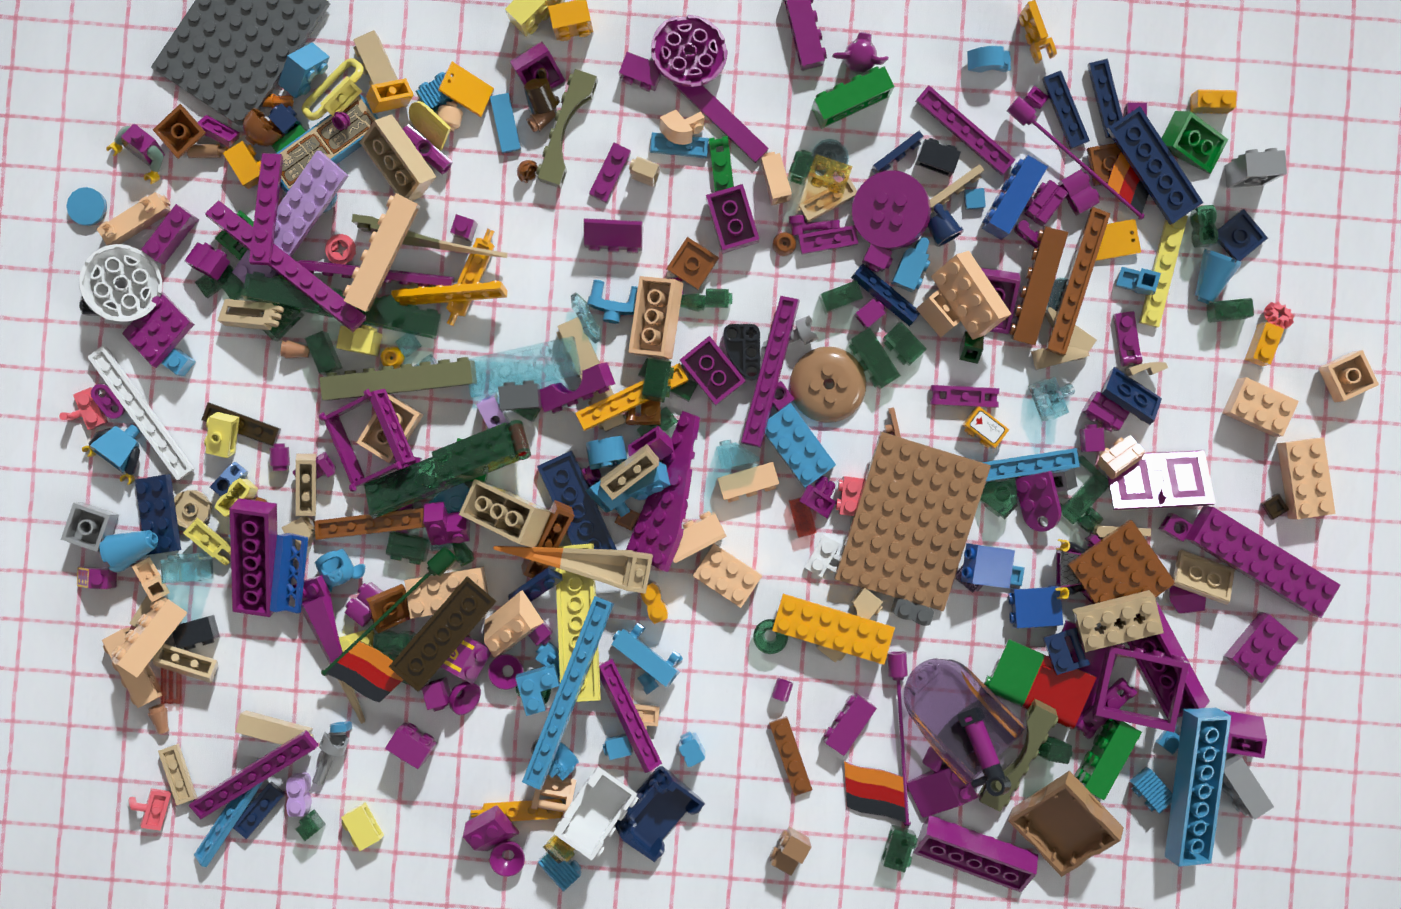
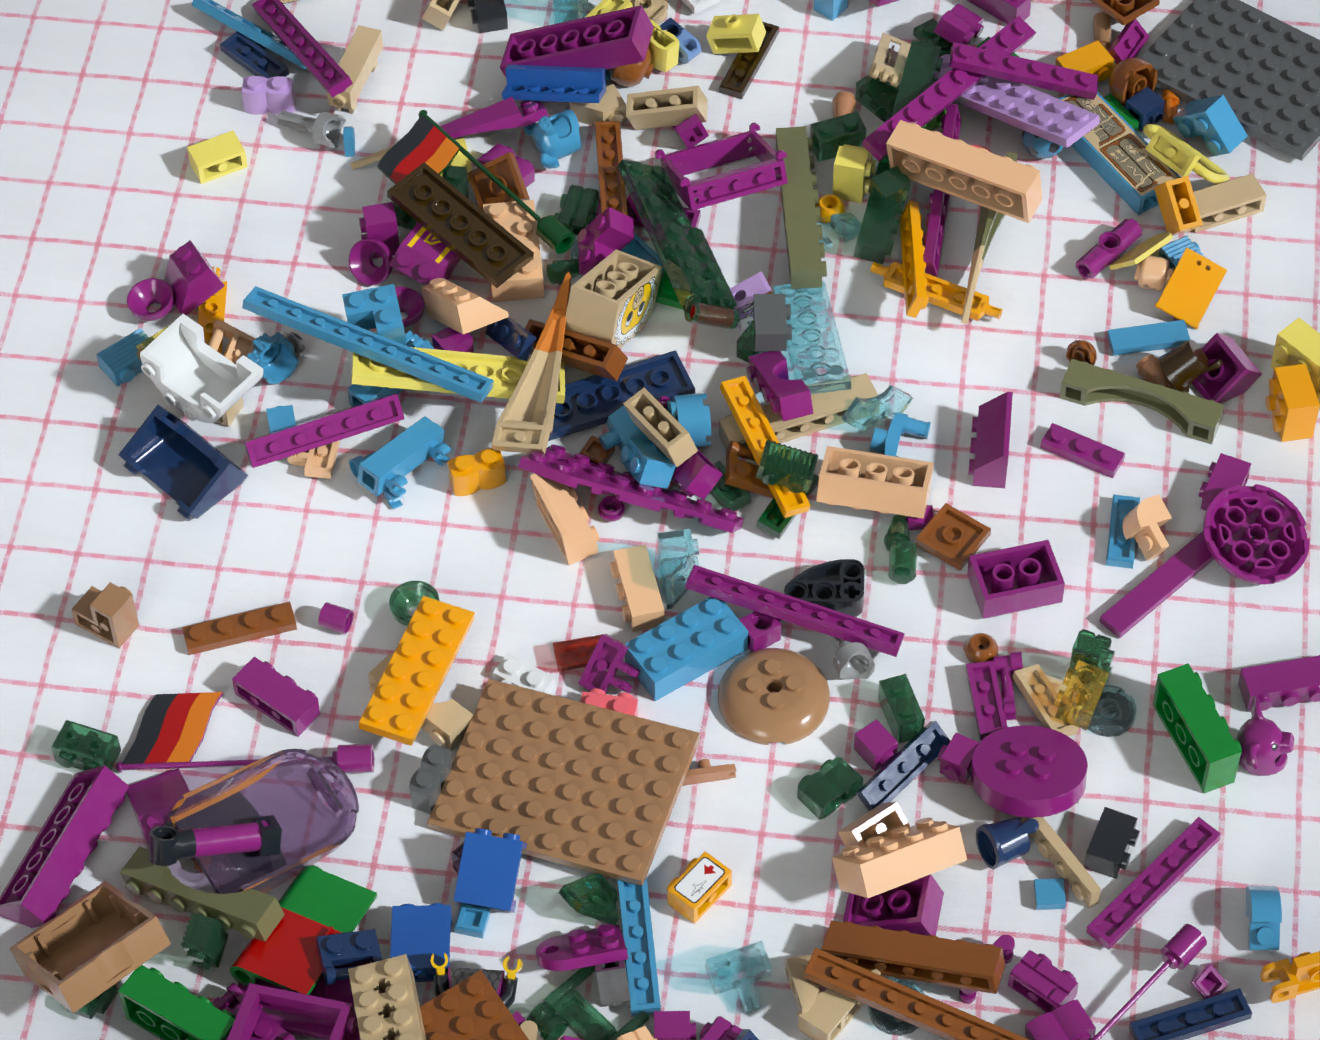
camera: 90 degrees right, 35 degrees down
(279, 457) = (710, 88): magenta brick -> none
(310, 825) = (226, 105): clear green brick -> none
(341, 120) = (1142, 152): magenta plate -> none
(373, 435) = (746, 213): light nougat brick -> none
(397, 158) = (1093, 212): tan brick -> none
(411, 745) = (316, 202): magenta brick -> none
(463, 227) = (1003, 283): magenta brick -> none
(644, 171) = (1081, 477): tan brick -> none
(691, 749) = (268, 500): dark azure brick -> none
(712, 370) = (797, 544): magenta brick -> none
(721, 163) = (1099, 577): green plate -> none
(727, 575) = (506, 557): light nougat brick -> none
(775, 178) = (1061, 627): light nougat slope -> none
(873, 358) = (808, 748): clear green brick -> none
(898, 153) = (1116, 790): dark blue plate -> none
(911, 266) = (946, 801): dark azure hinge -> none
(964, 396) = (748, 866): magenta plate -> none
(971, 349) = (818, 869): dark green brick -> none
(1015, 195) = (1050, 929): blue brick -> none

